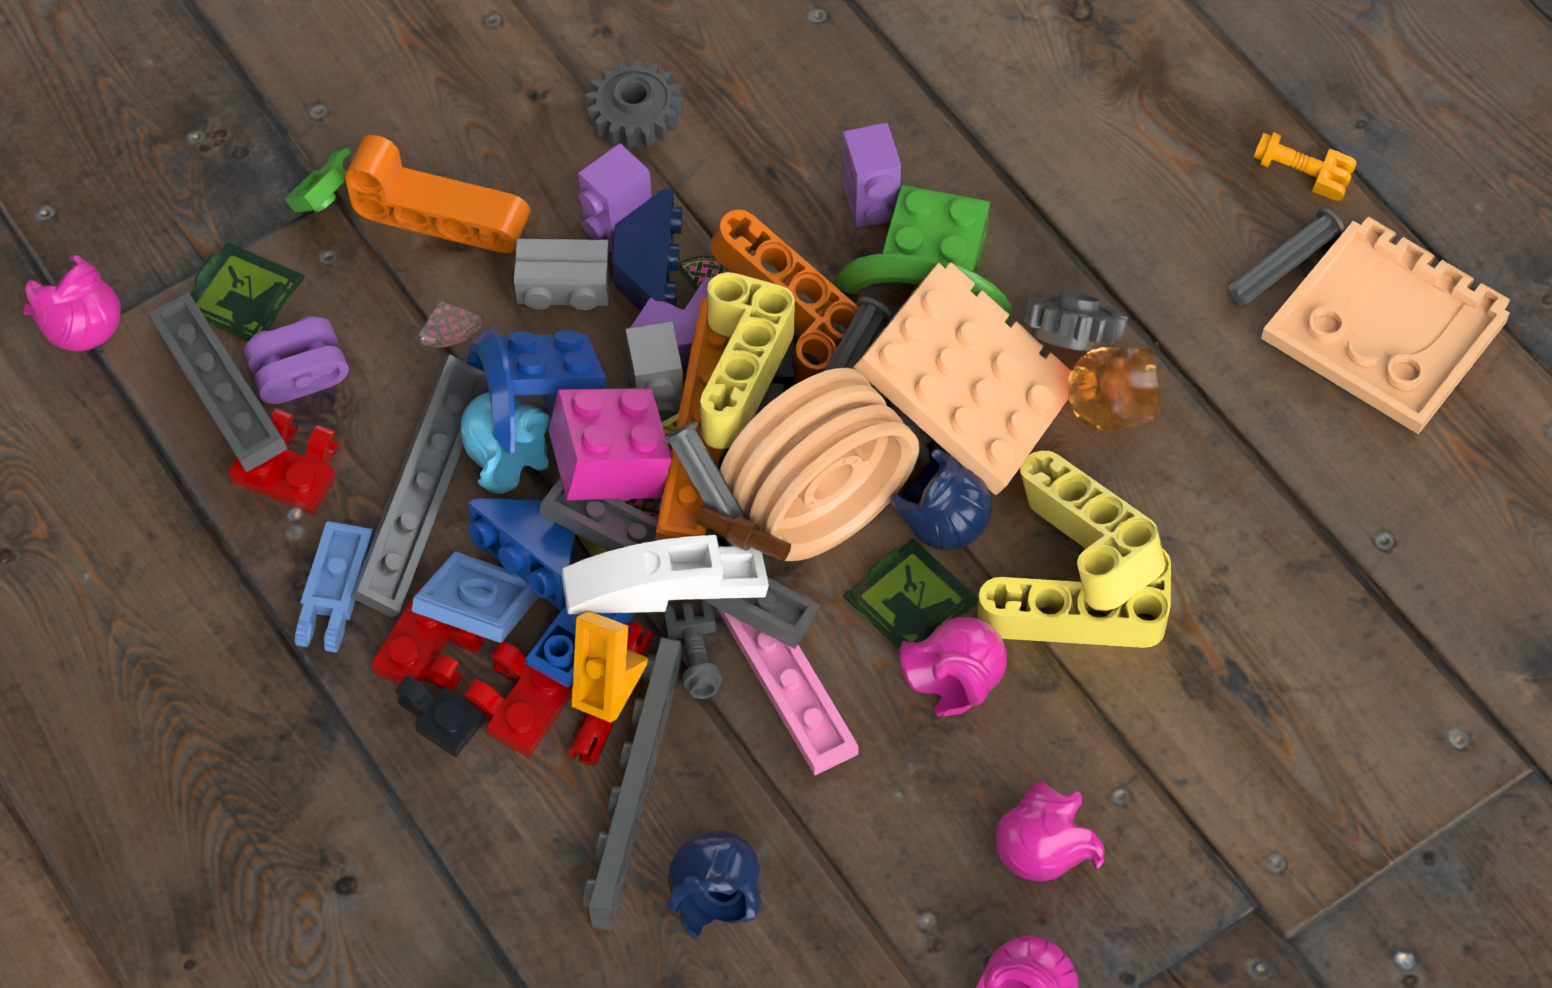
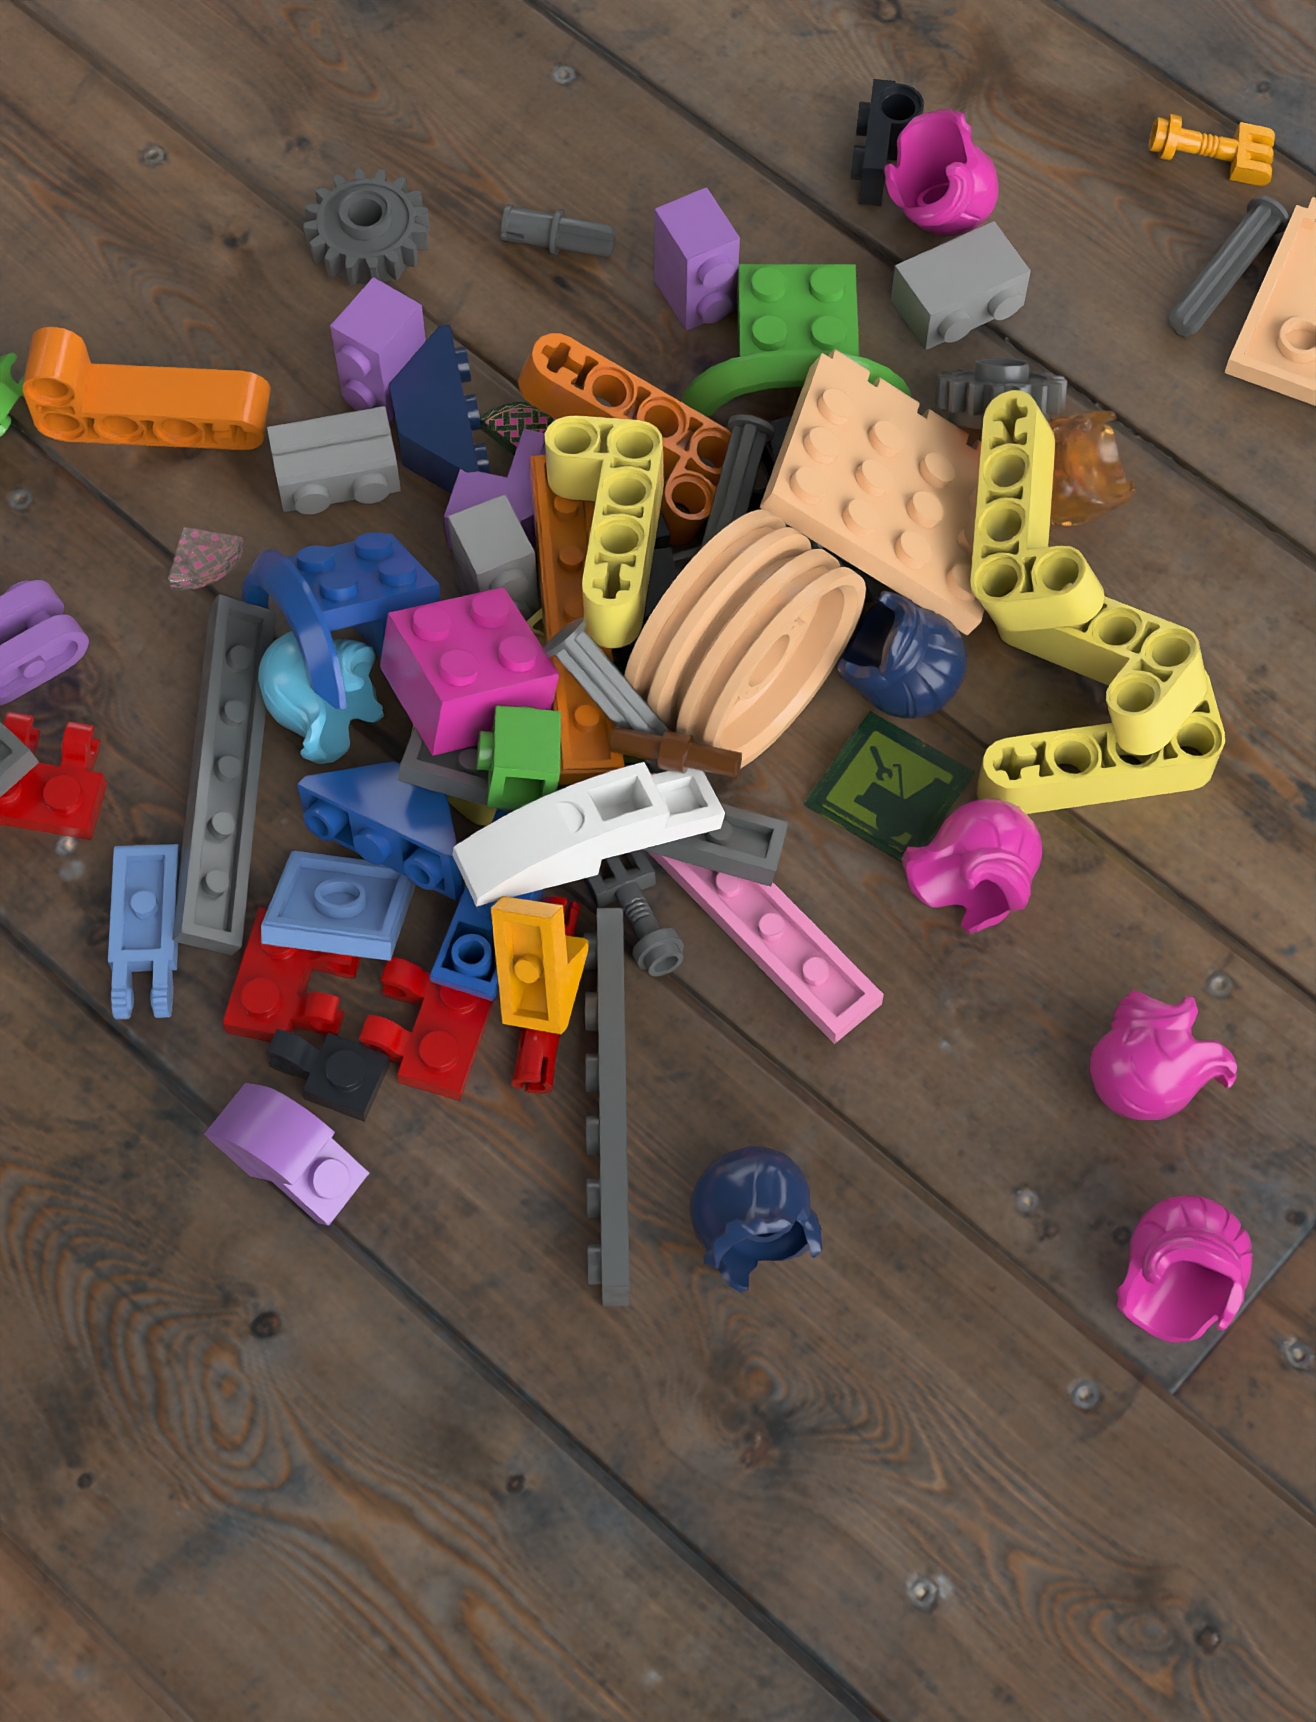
camera: 15 degrees left, 5 degrees up
(394, 761) = (290, 1147): none -> medium lavender brick
(628, 511) = (520, 755): none -> bright green brick
(776, 134) = (556, 231): none -> dark grey axle
(1040, 443) = (1024, 509): none -> light yellow beam
(1052, 103) = (881, 122): none -> black plate
(1072, 233) = (960, 286): none -> light grey brick
(1077, 147) = (942, 175): none -> dark pink hair

